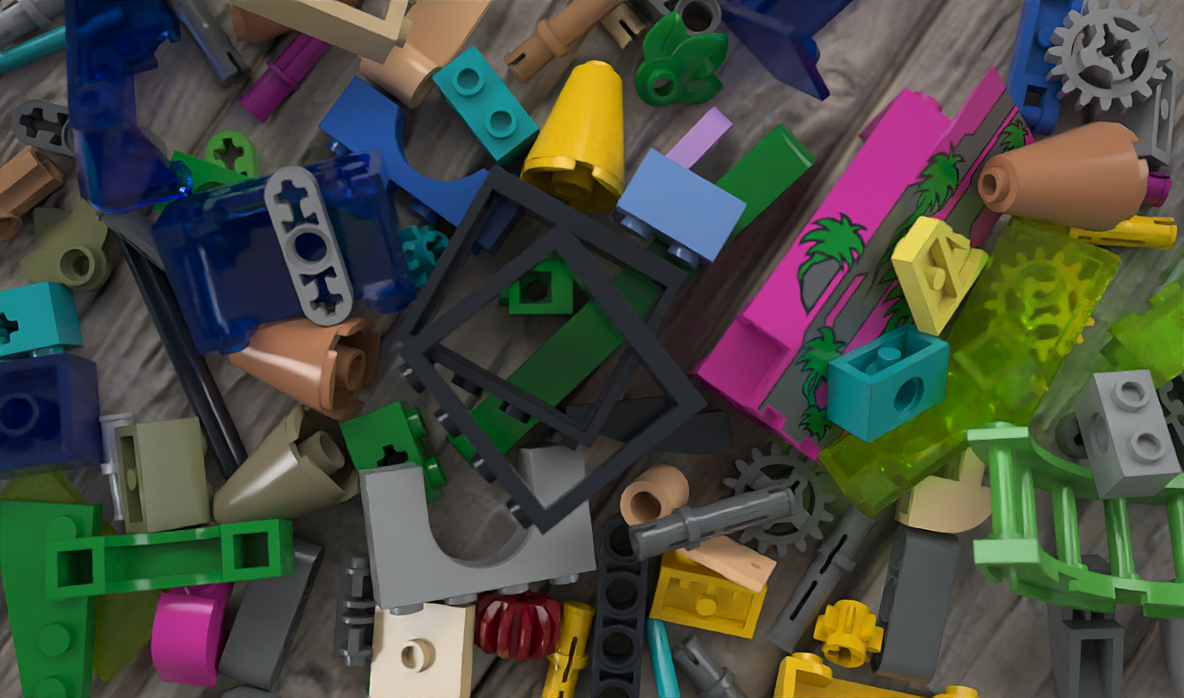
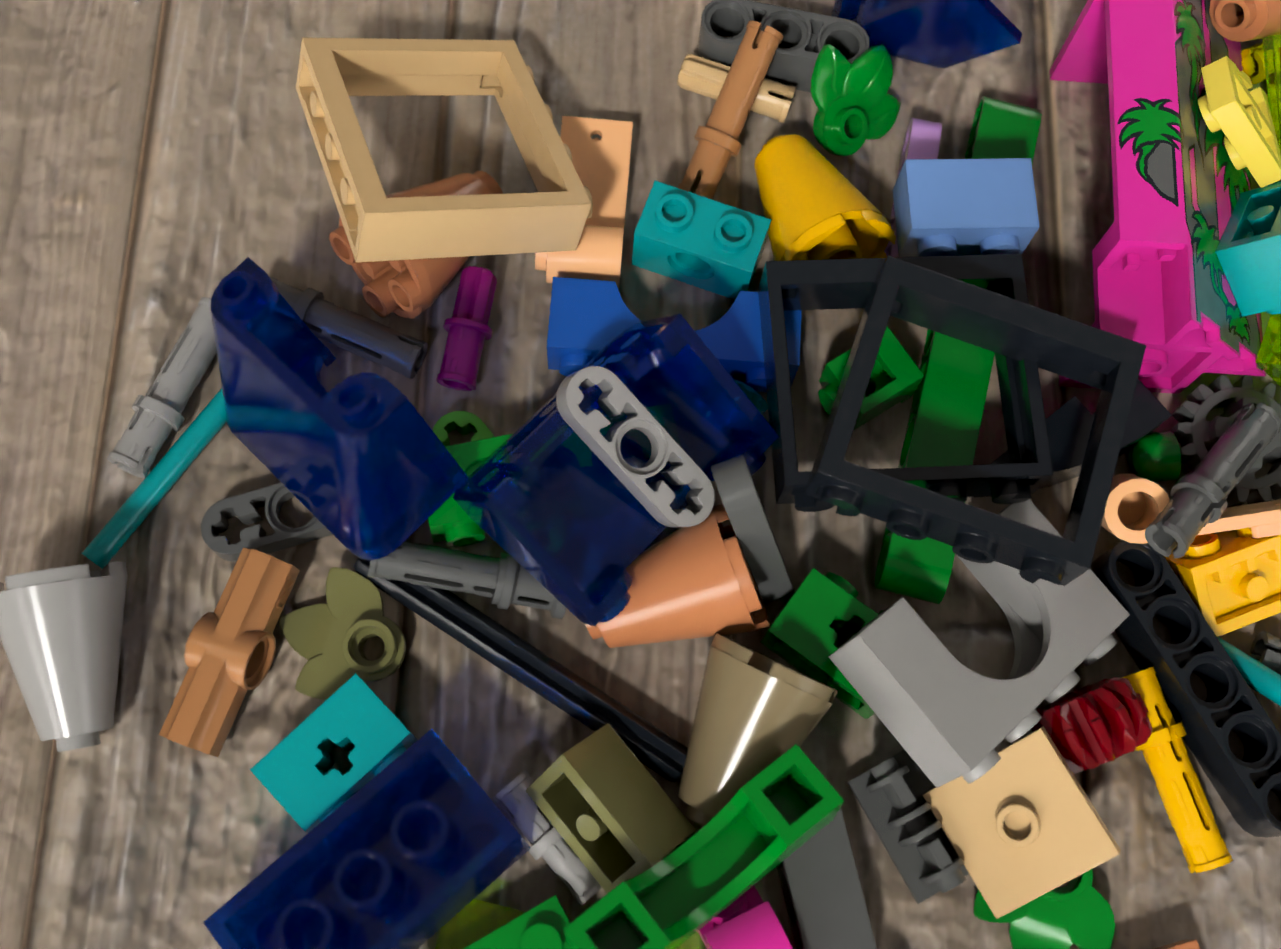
camera: 40 degrees left, 15 degrees down
(366, 349) = (752, 528): none -> dark grey beam
(709, 471) = (1156, 457): none -> green hinge

